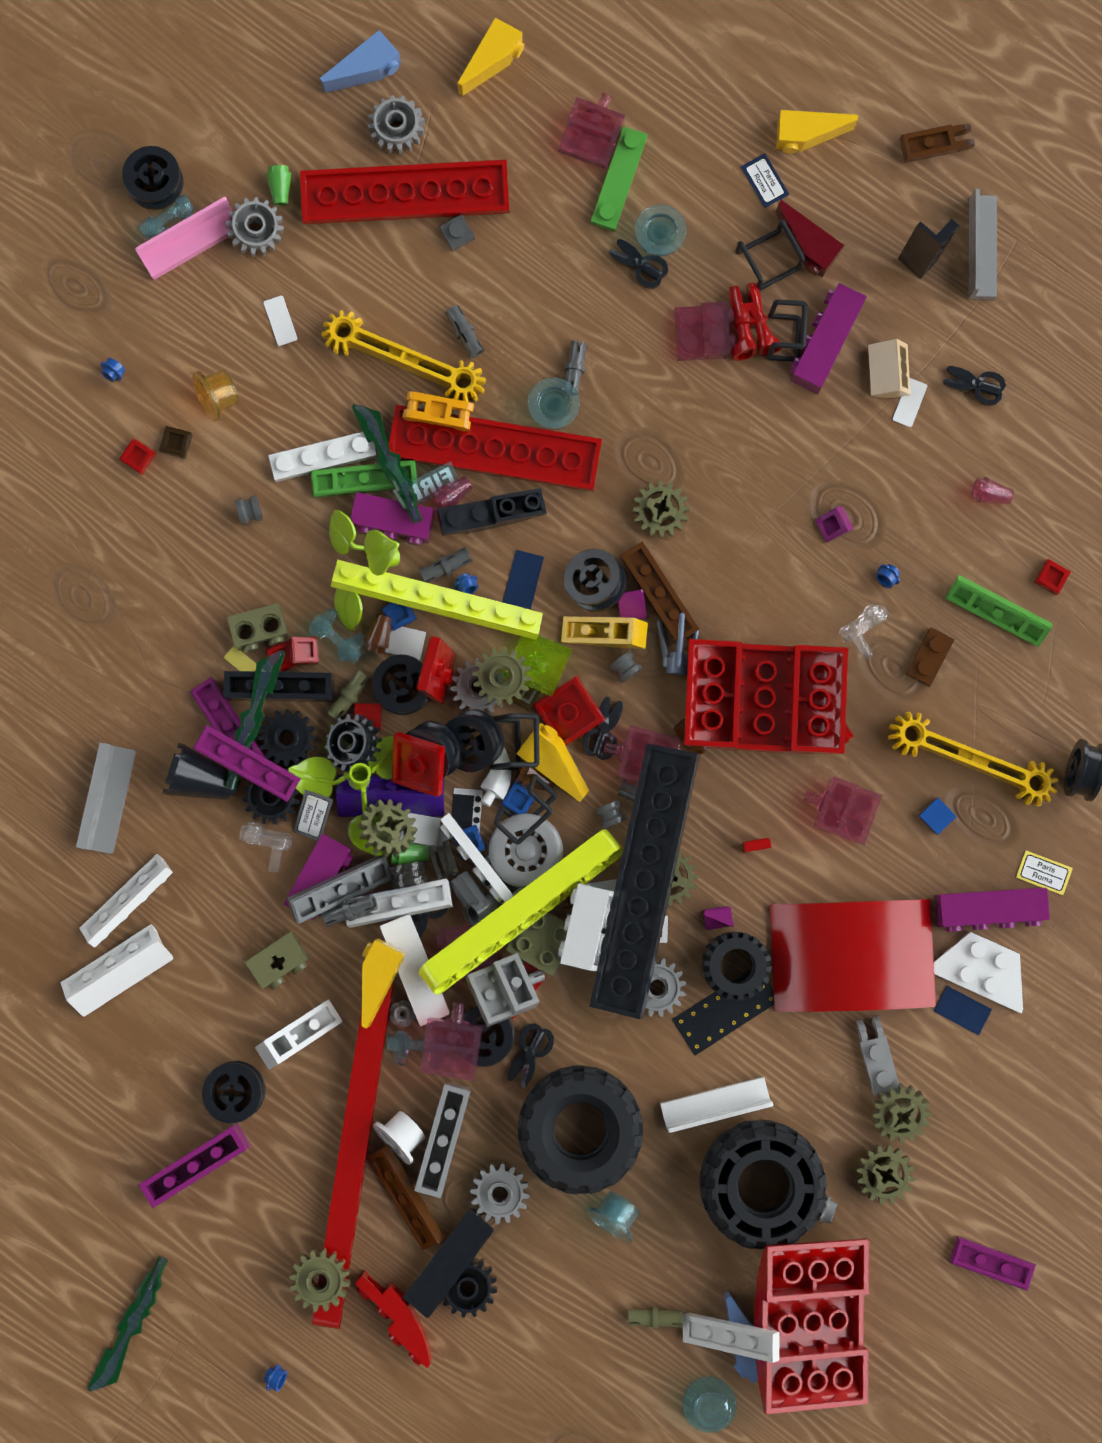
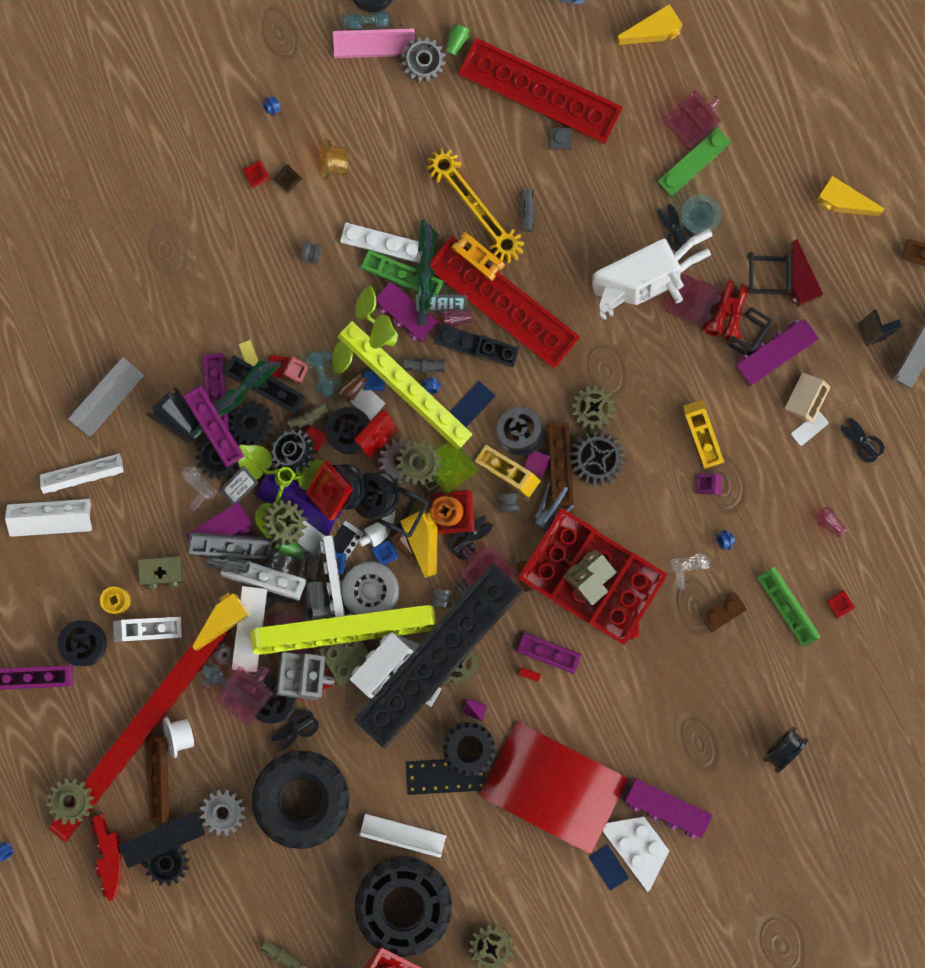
camera: 35 degrees right, 0 degrees up
(244, 1022) = (115, 600): none -> yellow wheel
(257, 620) = (274, 332): olive brick -> none
(280, 320) = (405, 133): white sticker -> none
(396, 137) = (560, 51): light grey gear -> none
(443, 1139) = (204, 754): light grey brick -> none
(544, 806) = (398, 567): black piece -> none
(553, 403) = (560, 294): clear light blue piece -> none
(573, 715) = (453, 516): none -> orange wheel
(575, 367) = (586, 279): dark grey pin -> none
(615, 1216) = (291, 871): clear light blue piece -> none
(637, 327) = (645, 274): none -> white piece
(670, 992) = (416, 741): light grey gear -> none
(687, 555) = (593, 449): none -> dark grey gear
(763, 809) = (548, 653): none -> magenta tile
(764, 698) = (589, 576): none -> brick
(765, 180) = (796, 218): sticker -> none
(798, 471) = (703, 433): none -> yellow slope
(828, 1211) = (438, 950): light grey plate -> none
(845, 810) = (604, 684): clear pink plate -> none
(877, 1057) = (531, 867): light grey hinge -> none
(896, 1124) = (526, 921): olive gear -> none
(937, 816) = (666, 724): blue tile -> none
(974, 759) = (713, 699): yellow arm -> none
(1044, 872) = (718, 805): sticker -> none

